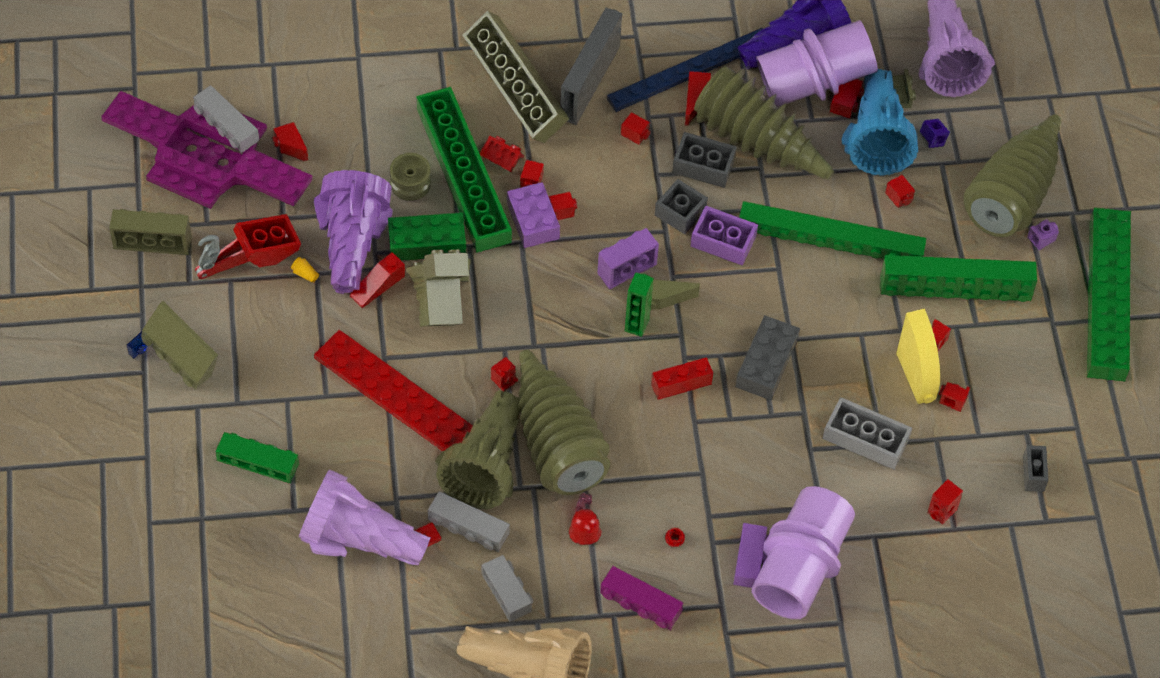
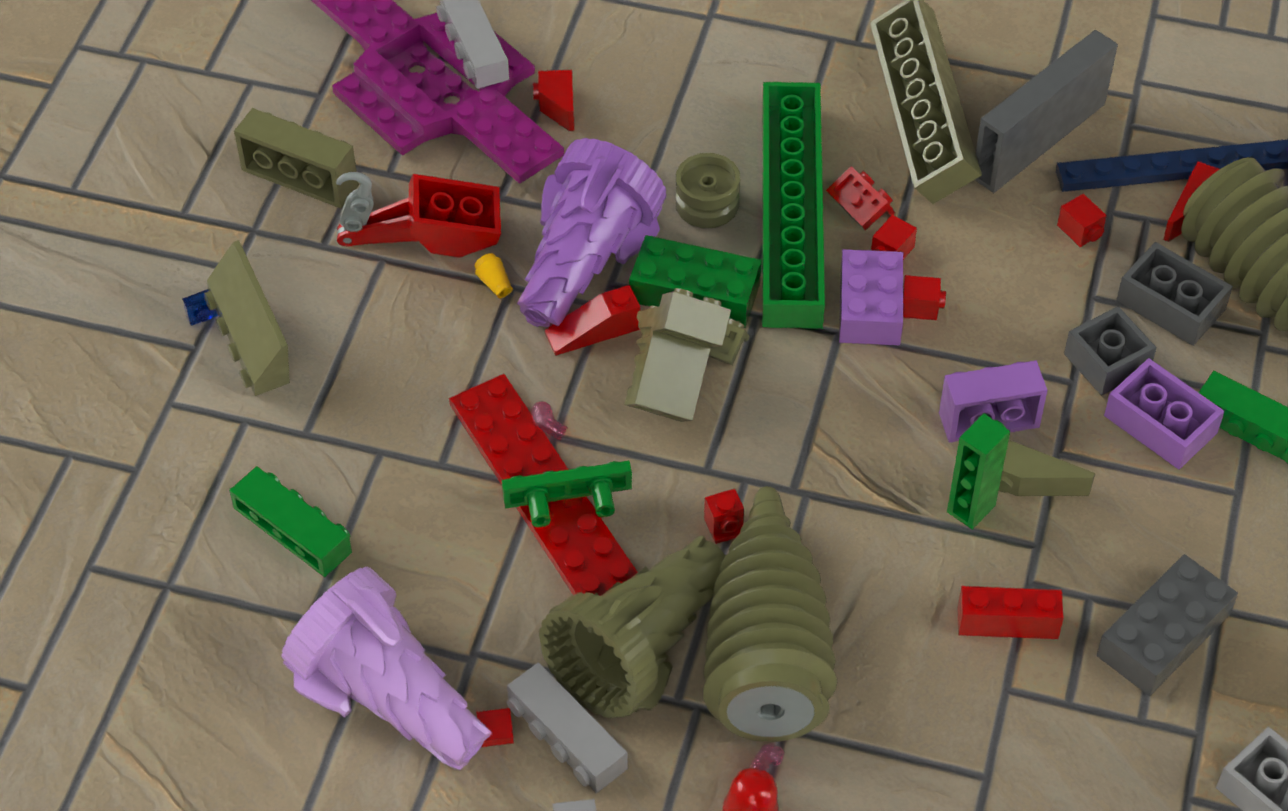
camera: 25 degrees right, 5 degrees down
(376, 350) = (544, 419): none -> clear pink arm
(402, 388) = (568, 484): none -> green plate

